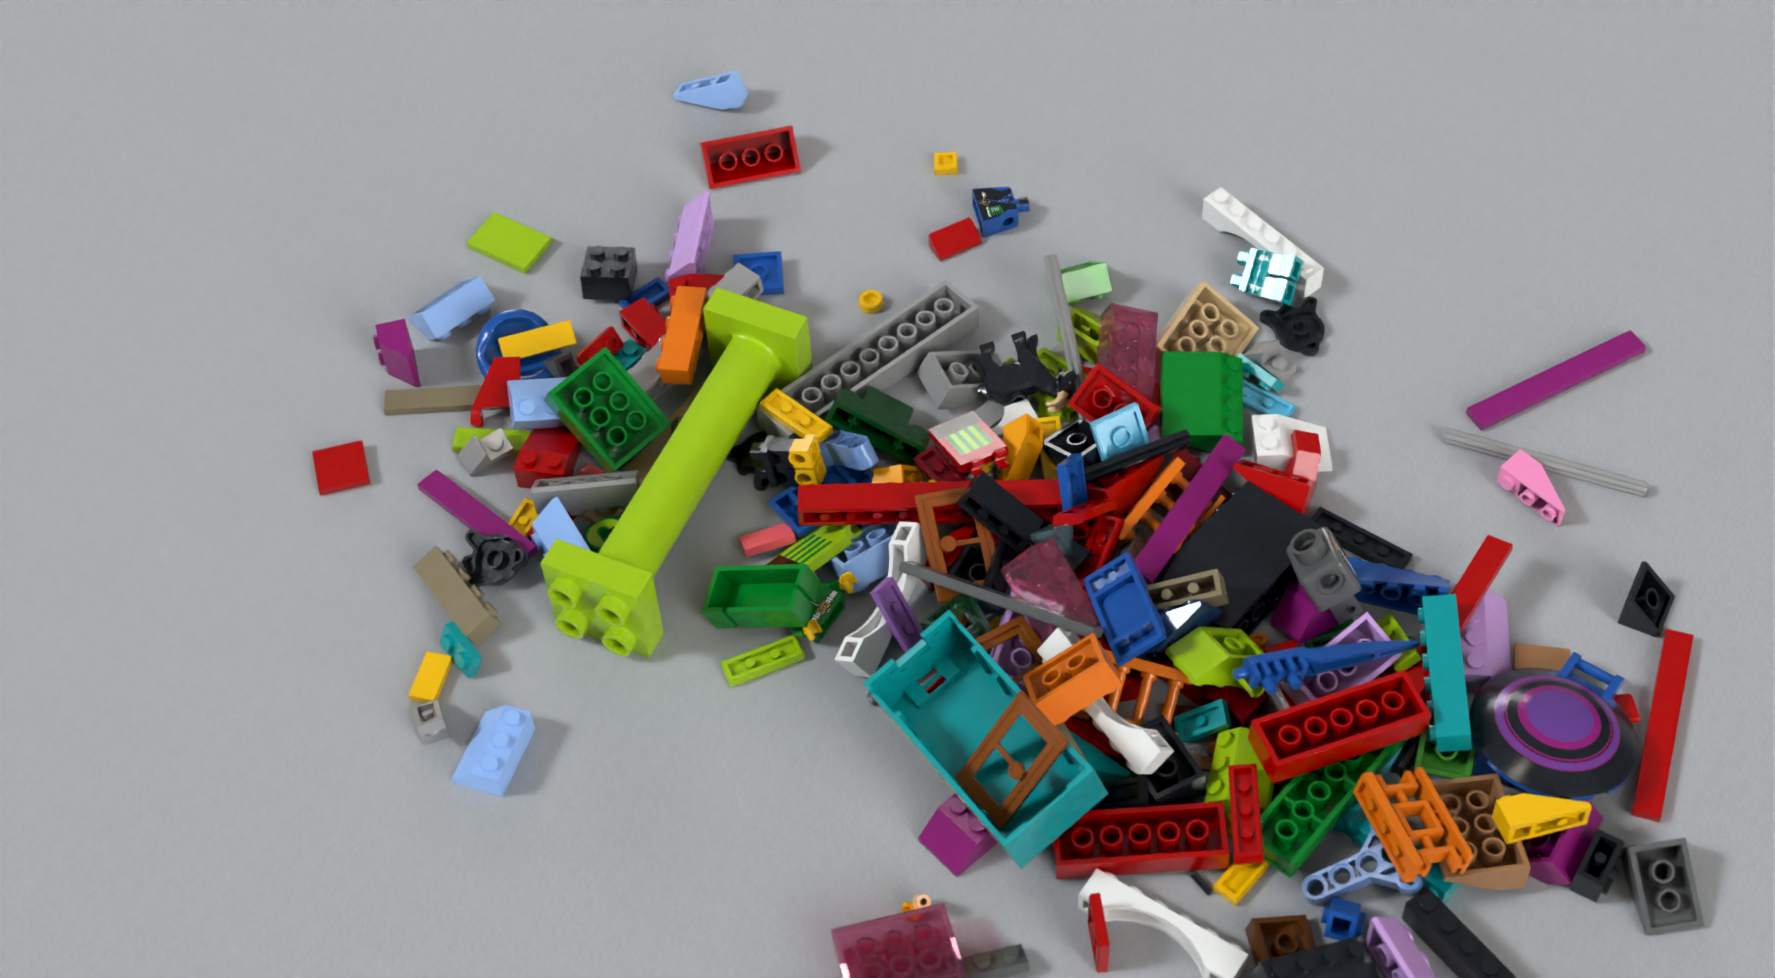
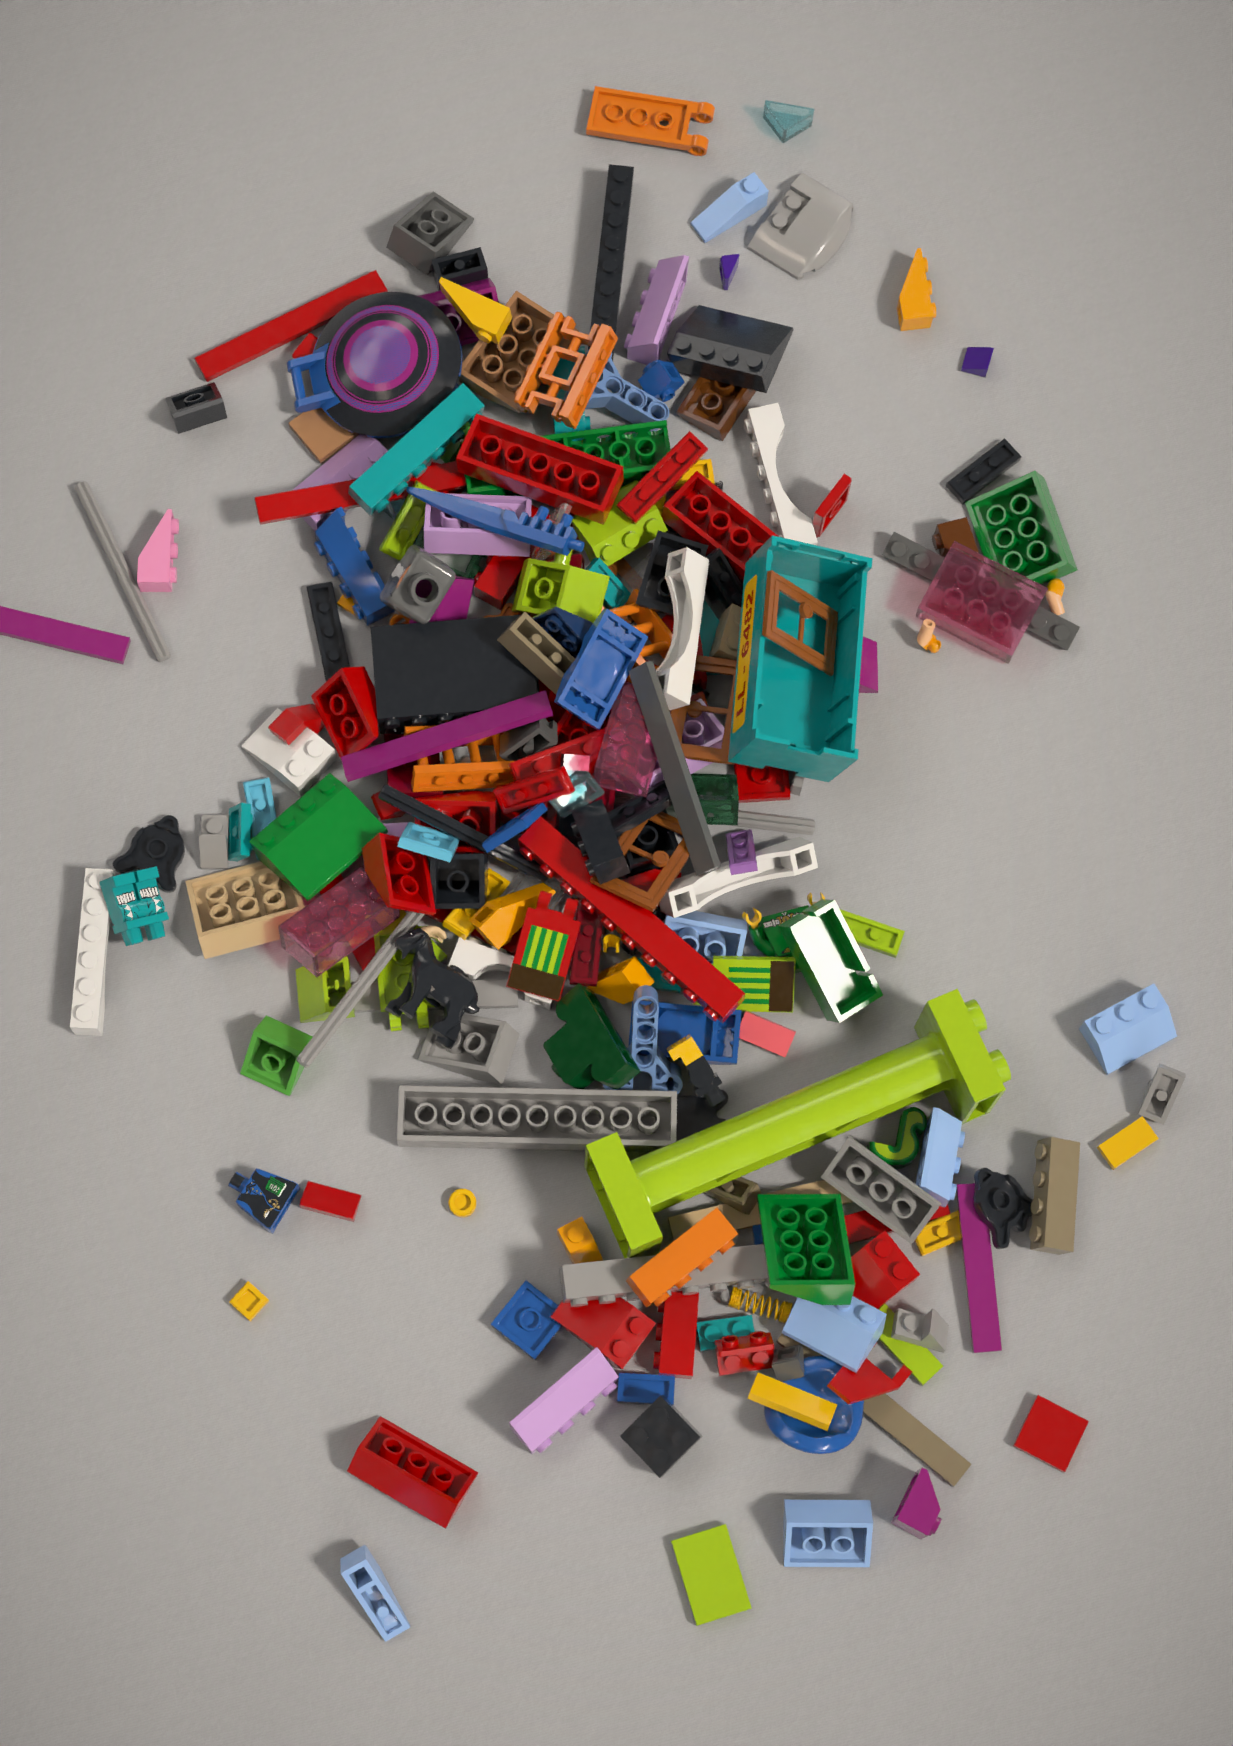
camera: 145 degrees left, 20 degrees up
(461, 649) = (1089, 1132): teal plate -> none
(795, 416) = (657, 1100): yellow tile -> none
(1072, 680) = (697, 648): orange slope -> none

